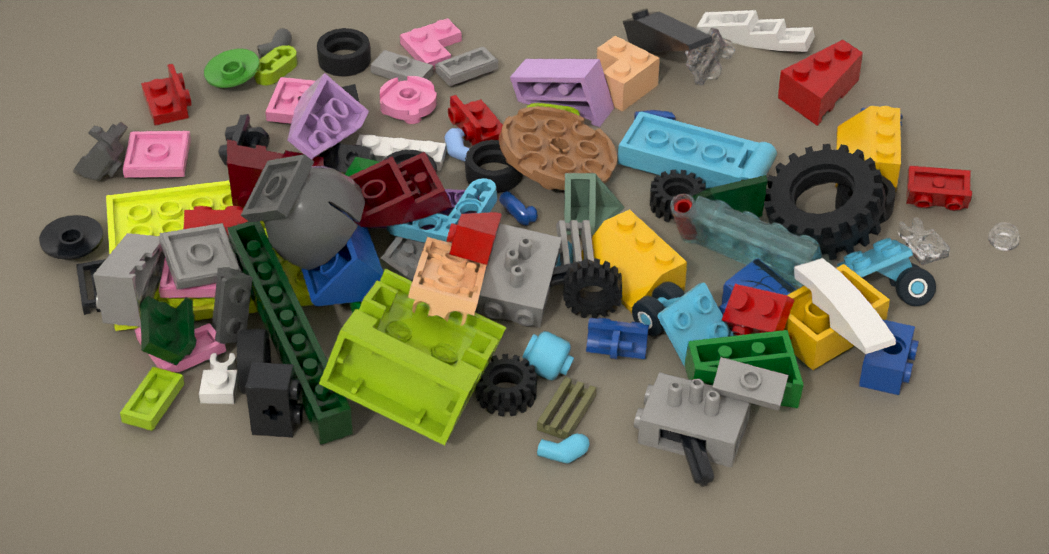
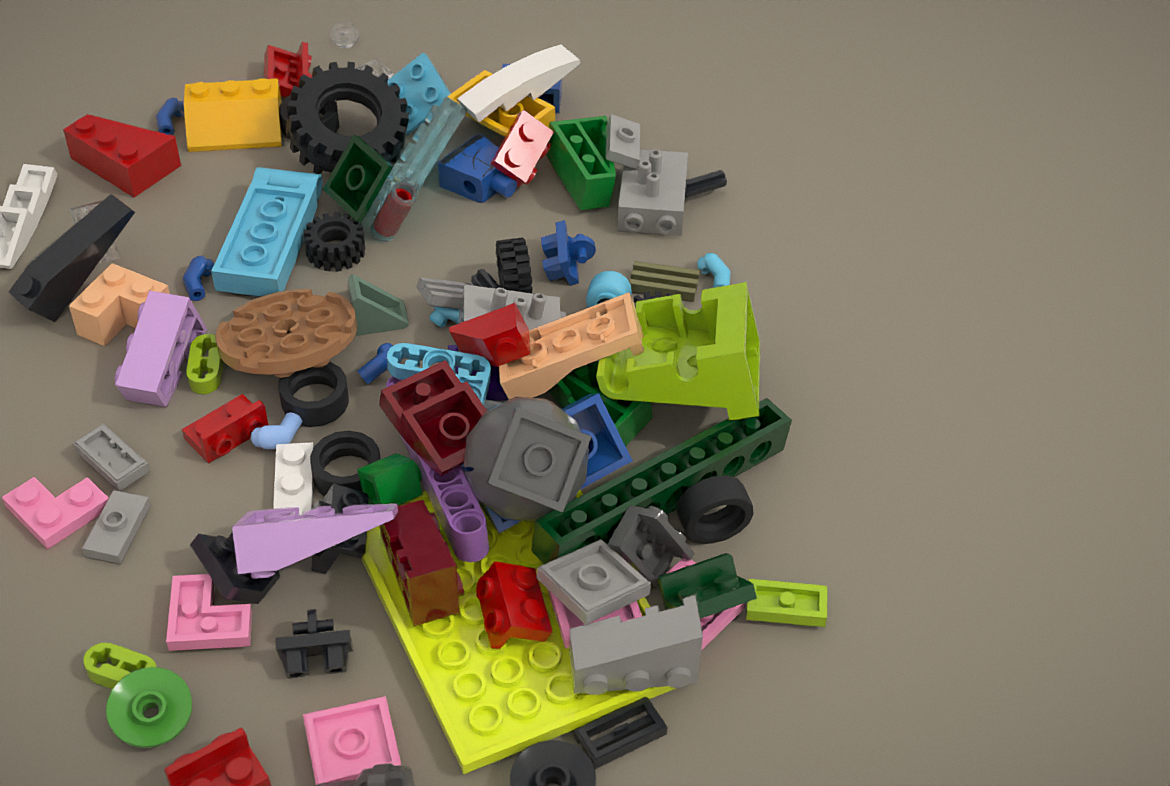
camera: 105 degrees left, 5 degrees up
(220, 382) = (741, 547): white plate -> none
(273, 399) = (769, 473): black brick -> none
(281, 37) = (73, 677): dark grey arm -> none
(344, 64) = (81, 570): black tyre -> none
(408, 99) = (187, 518): bright pink plate -> none
(639, 256) = (449, 249): yellow slope -> none
(681, 315) = (517, 222): medium azure plate -> none

